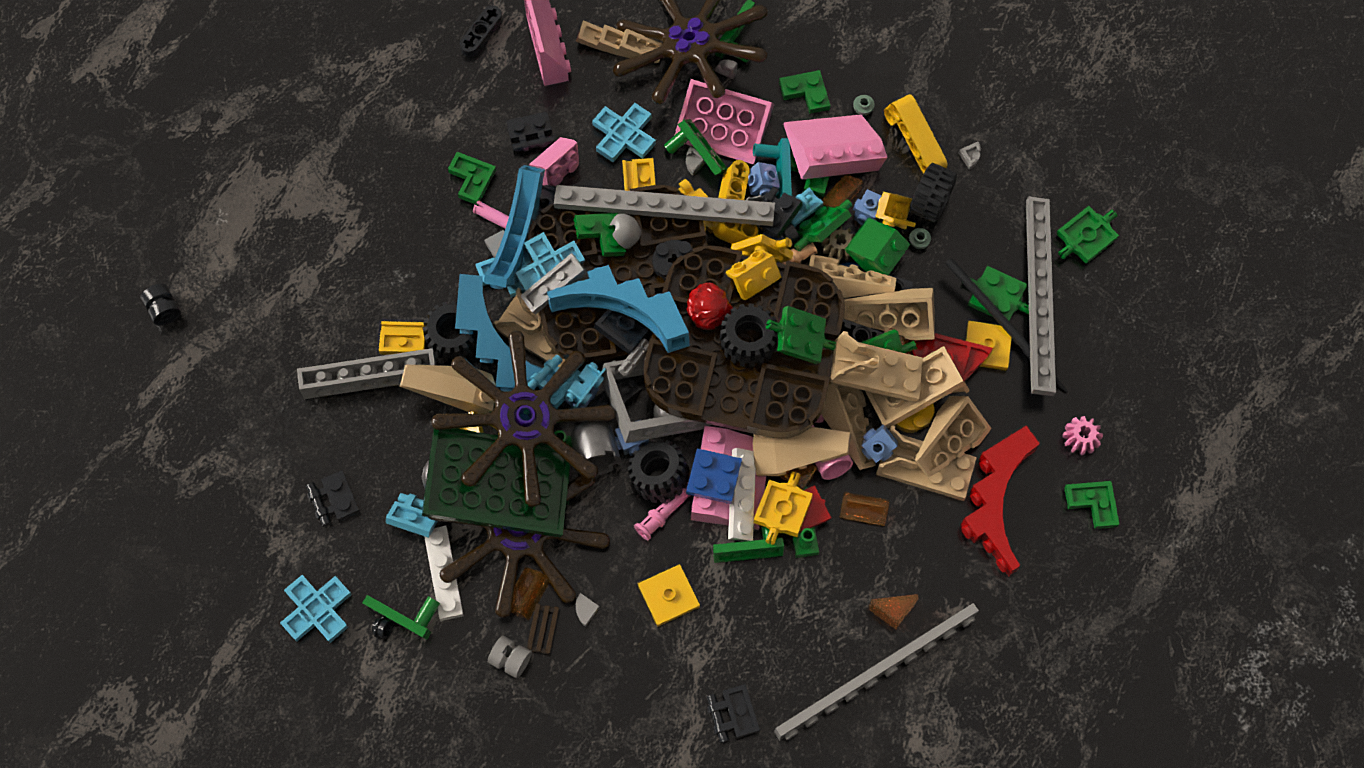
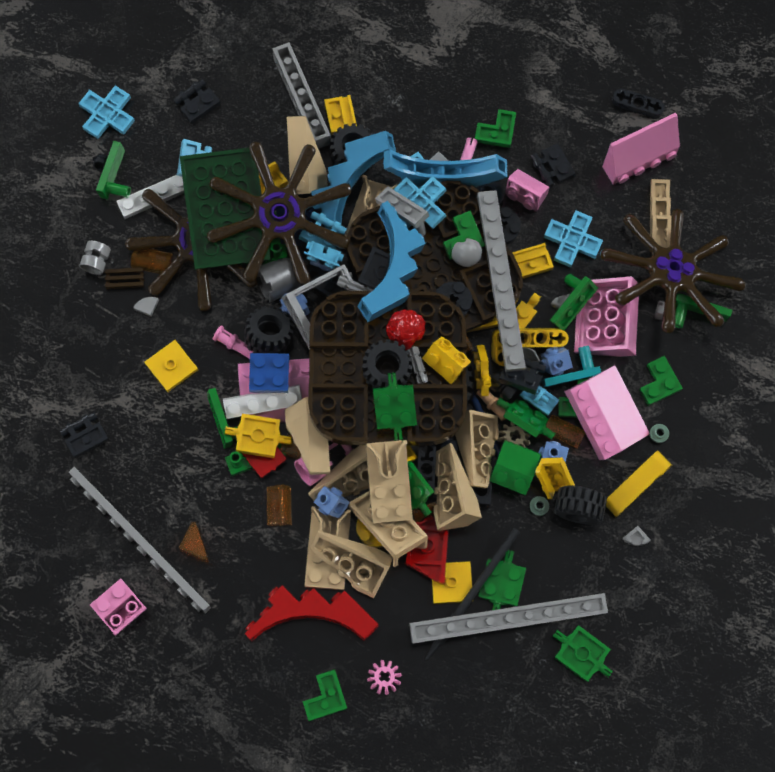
camera: 75 degrees right, 5 degrees up
(767, 304) = (417, 366): none -> light grey axle
(956, 708) = (118, 606): none -> bright pink slope

